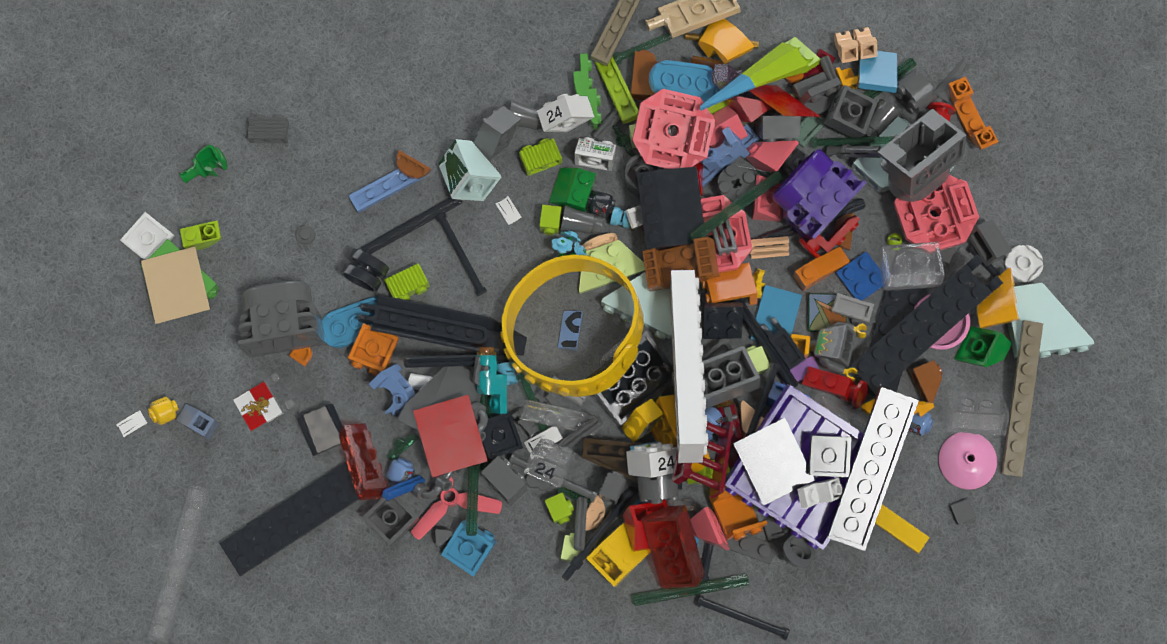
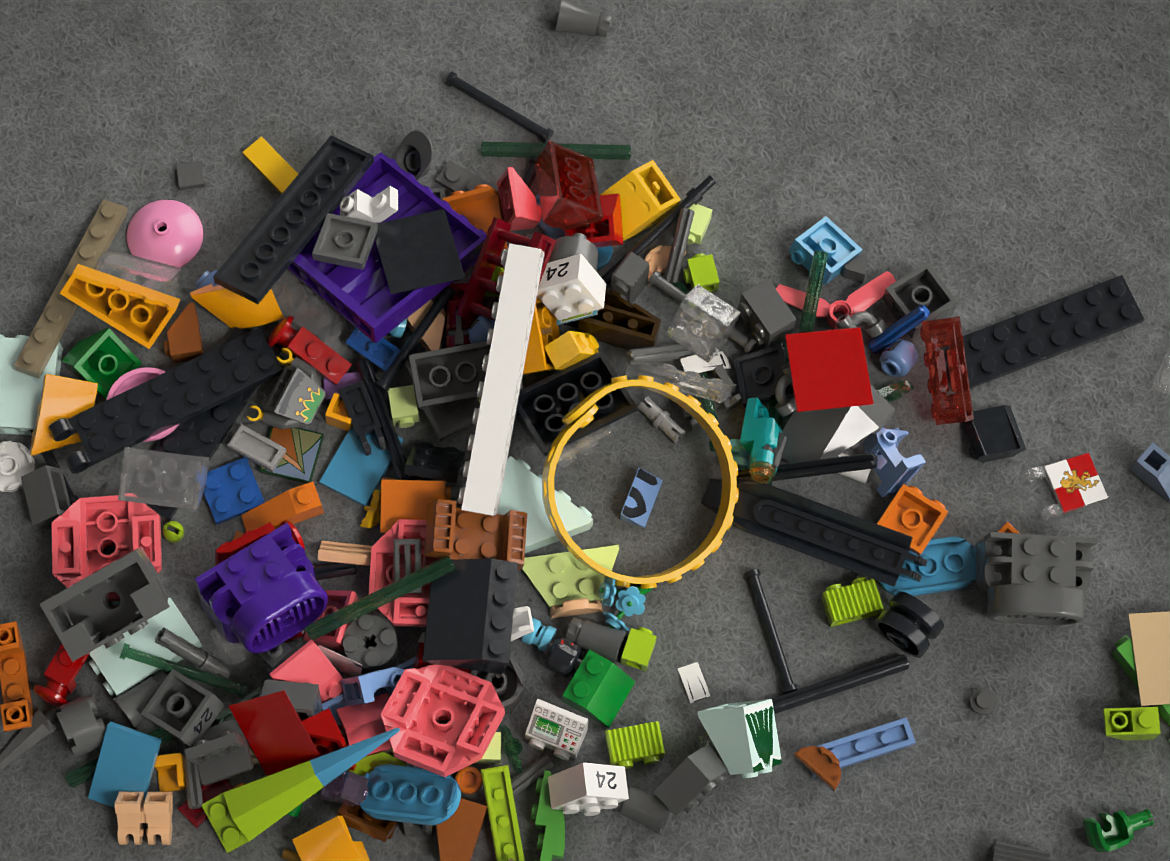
camera: 170 degrees left, 5 degrees down
(982, 386) = (120, 303): none -> light orange wedge

